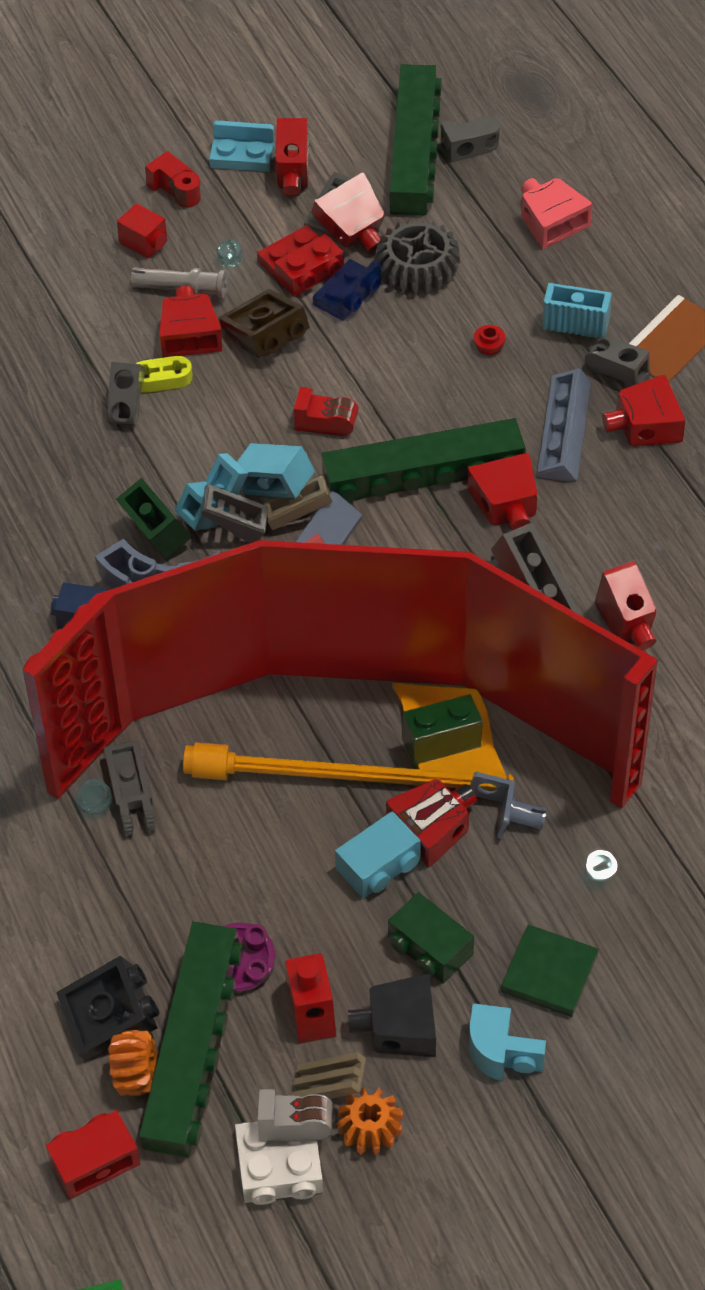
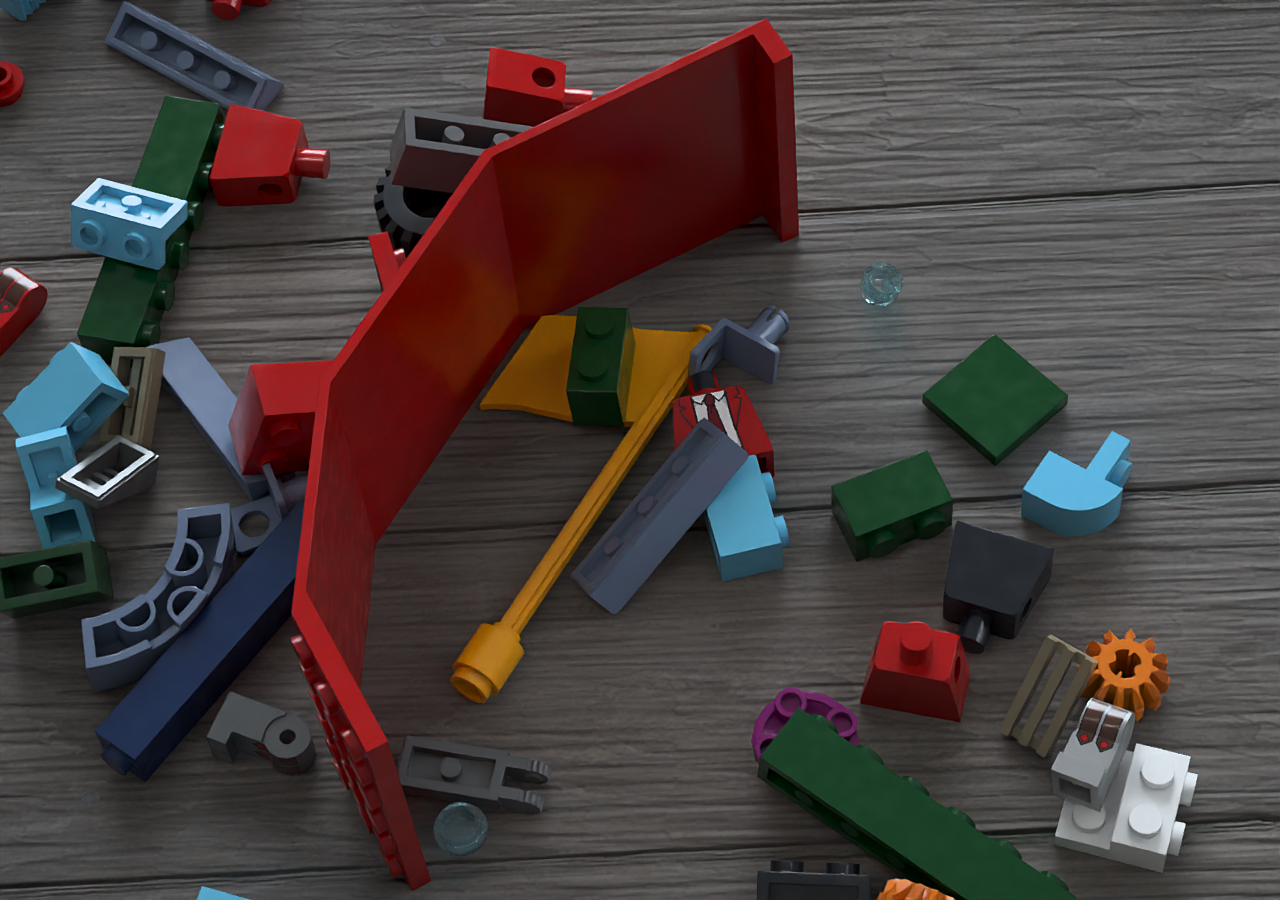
camera: 60 degrees left, 5 degrees up
(350, 807) = (659, 516): none -> sand blue slope
(406, 436) = (125, 222): none -> medium azure bracket

